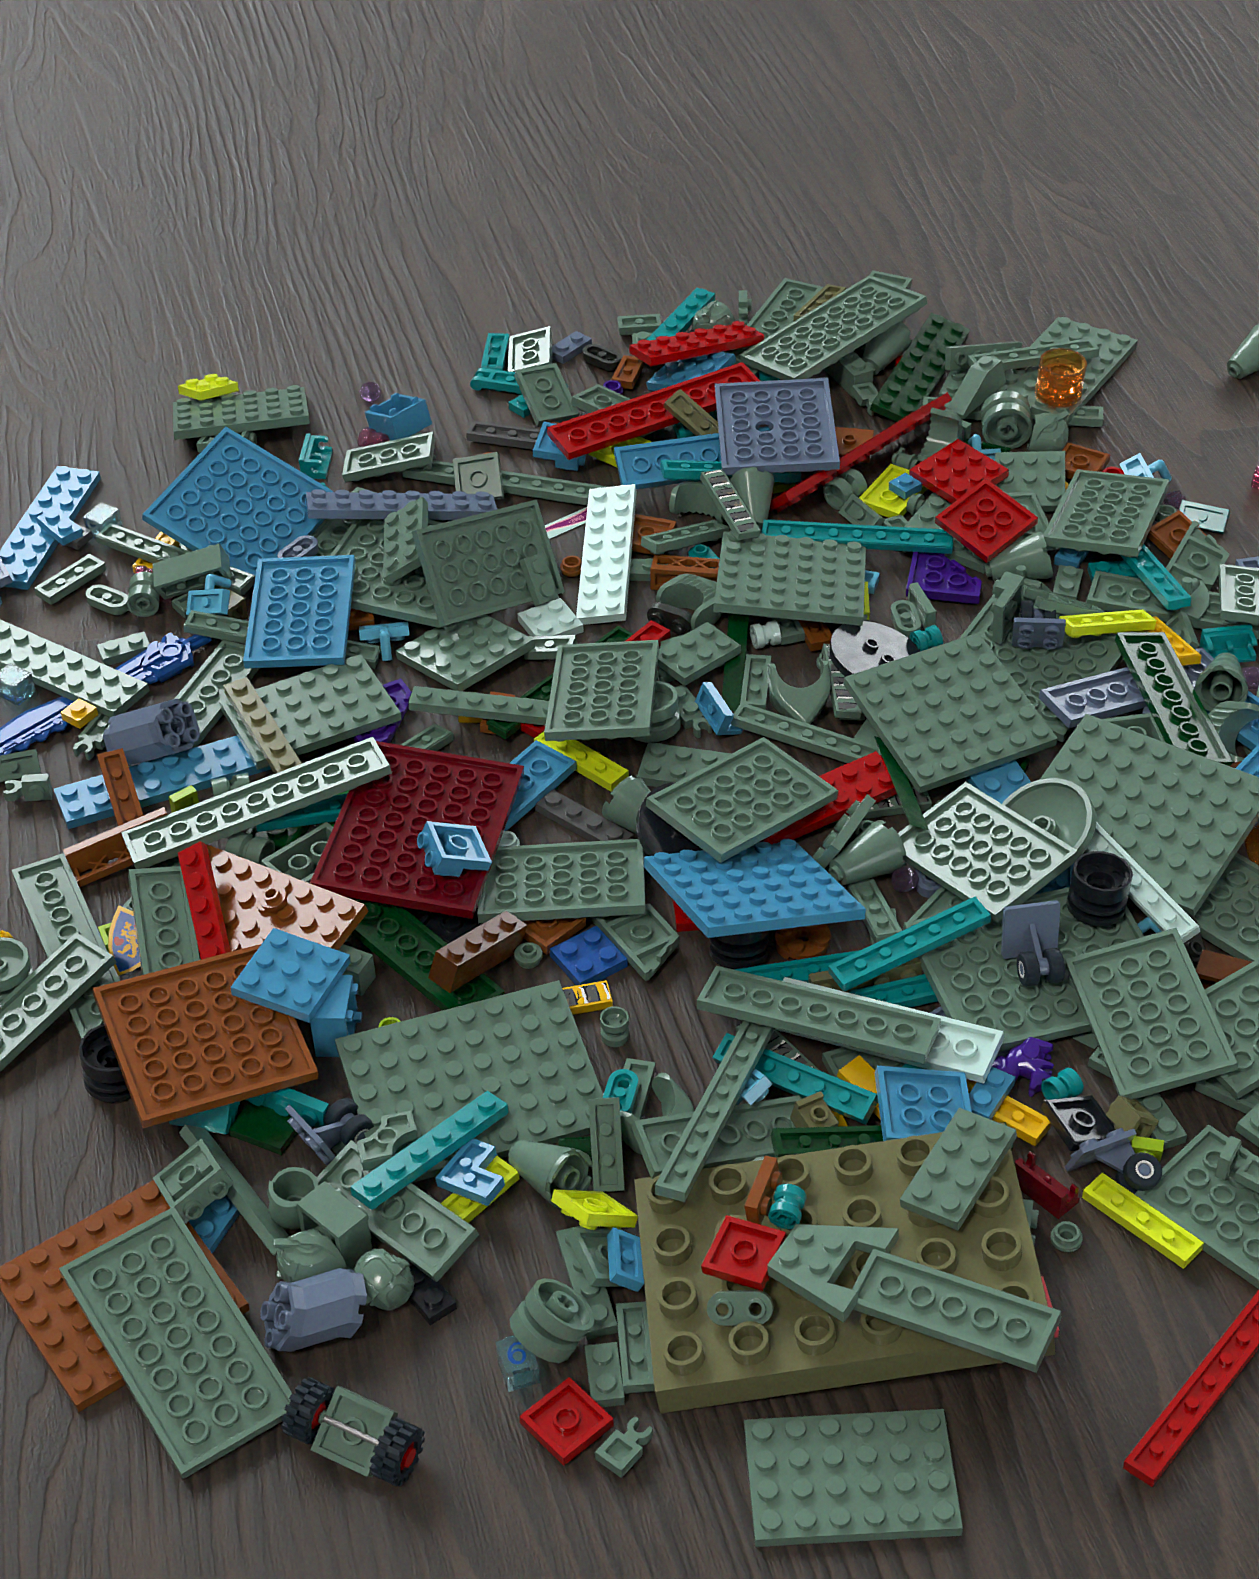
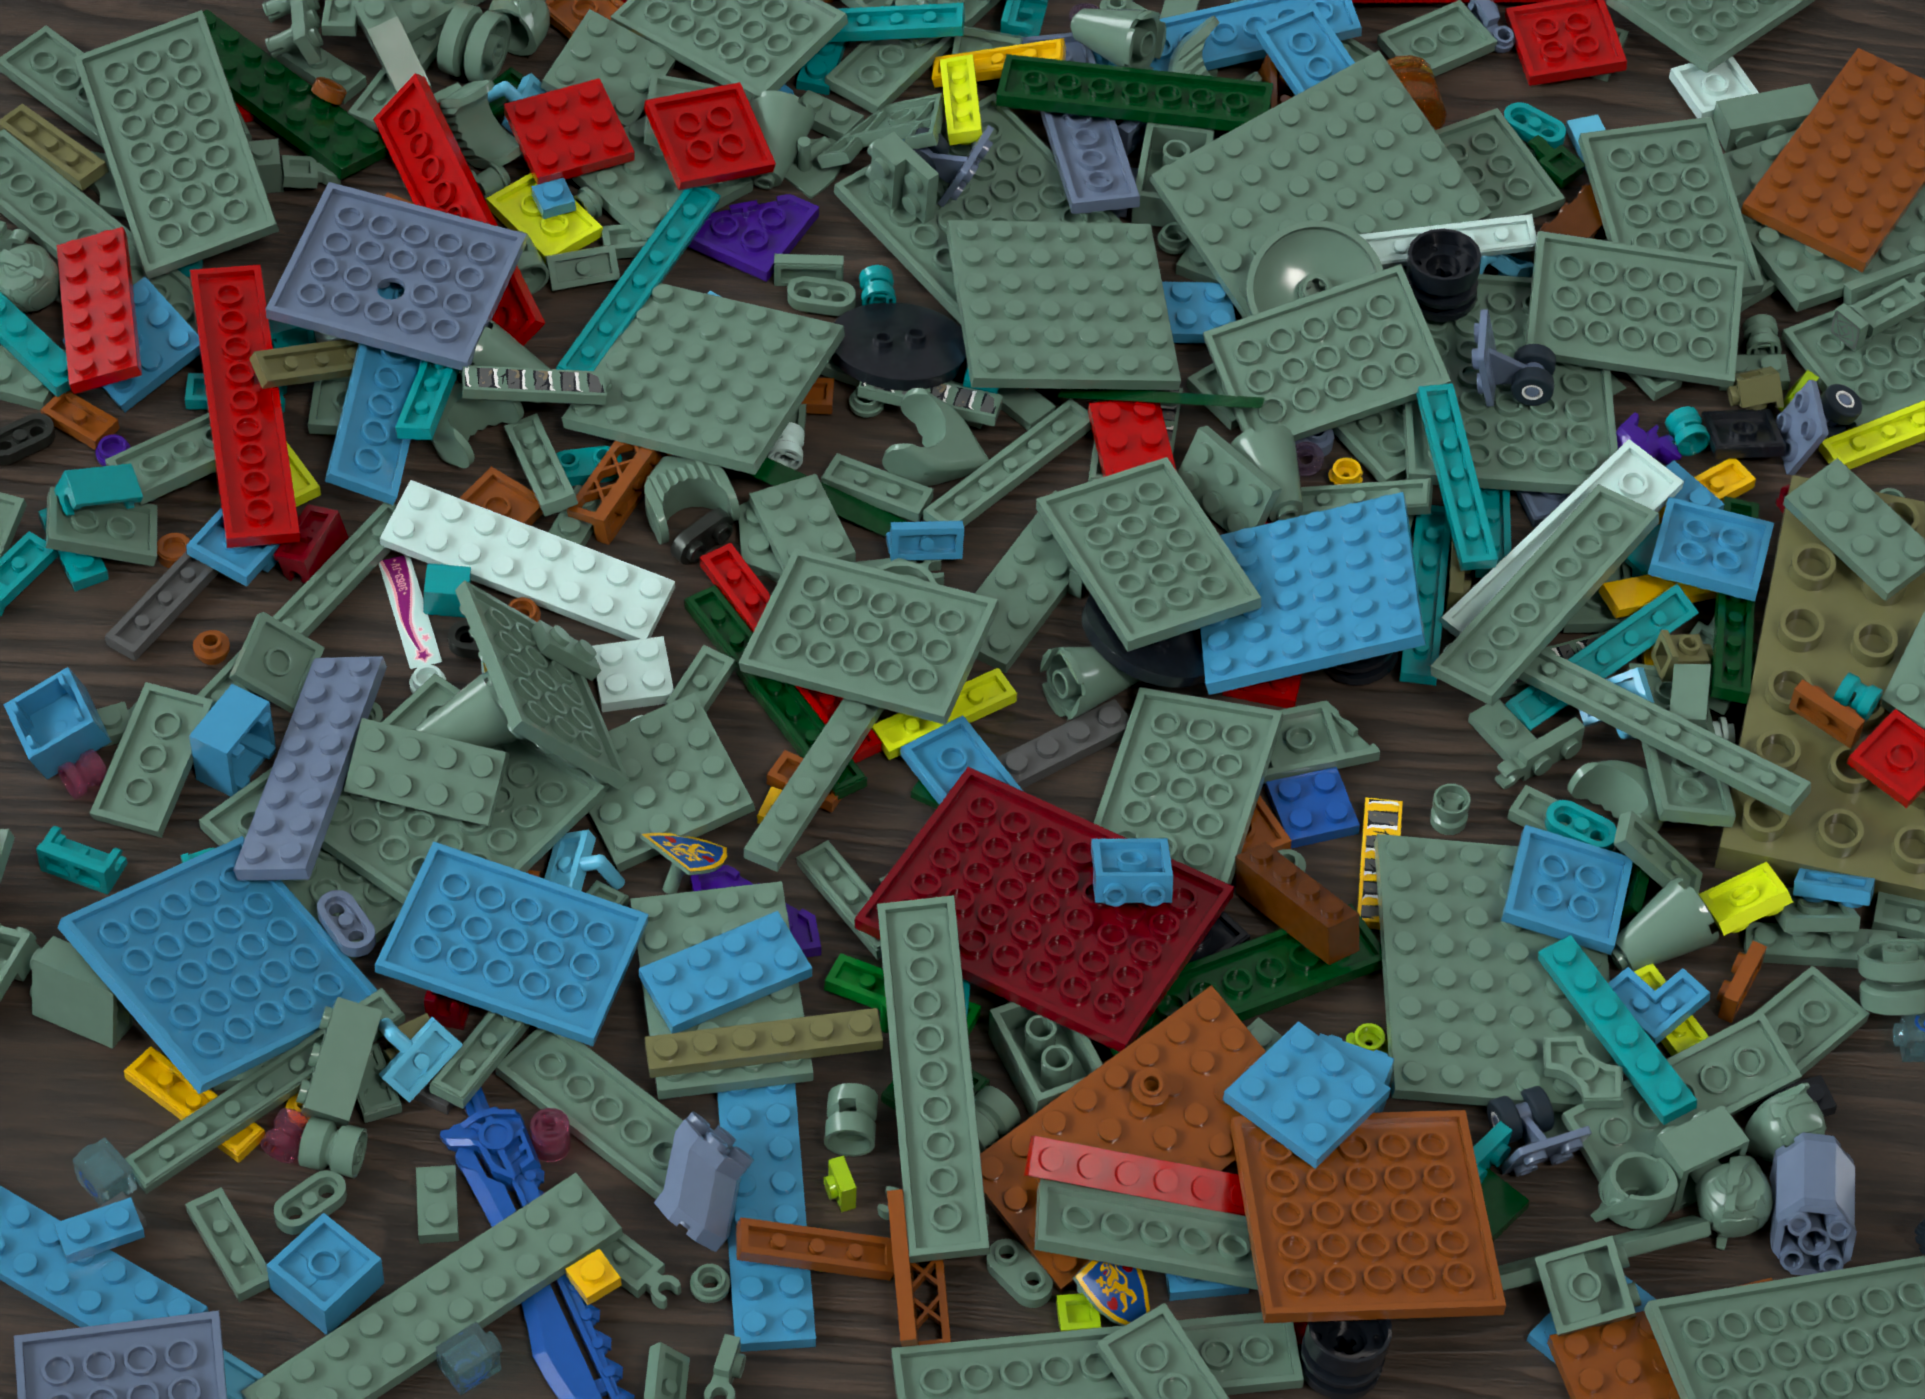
camera: 75 degrees left, 10 degrees up
(53, 612) = (325, 1274): none -> dark azure container
(92, 767) = (709, 1274): none -> sand green plate
(181, 672) = (550, 1134): none -> clear pink wheel
(312, 700) = (725, 972): none -> dark azure plate
(406, 668) = (687, 856): none -> shield
(411, 471) = (232, 740): none -> dark azure container
(494, 1276) = (1813, 1017): none -> sand green plate
(524, 1232) = (1746, 970): none -> dark orange plate
(552, 1096) = (1567, 889): none -> dark azure plate
(561, 376) = (98, 487): none -> teal hinge
(571, 530) = (440, 589): none -> teal panel
(579, 470) = (320, 537): none -> dark red hinge
(685, 1064) = (1542, 754): none -> sand green plate
(699, 1052) = (1501, 729): none -> sand green plate
(759, 1125) = (1691, 692): none -> sand green tile
(904, 904) = (1345, 472): none -> yellow plate
(932, 383) = (329, 90): none -> dark orange tile
(1193, 1114) = (1761, 335): none -> sand green wheel

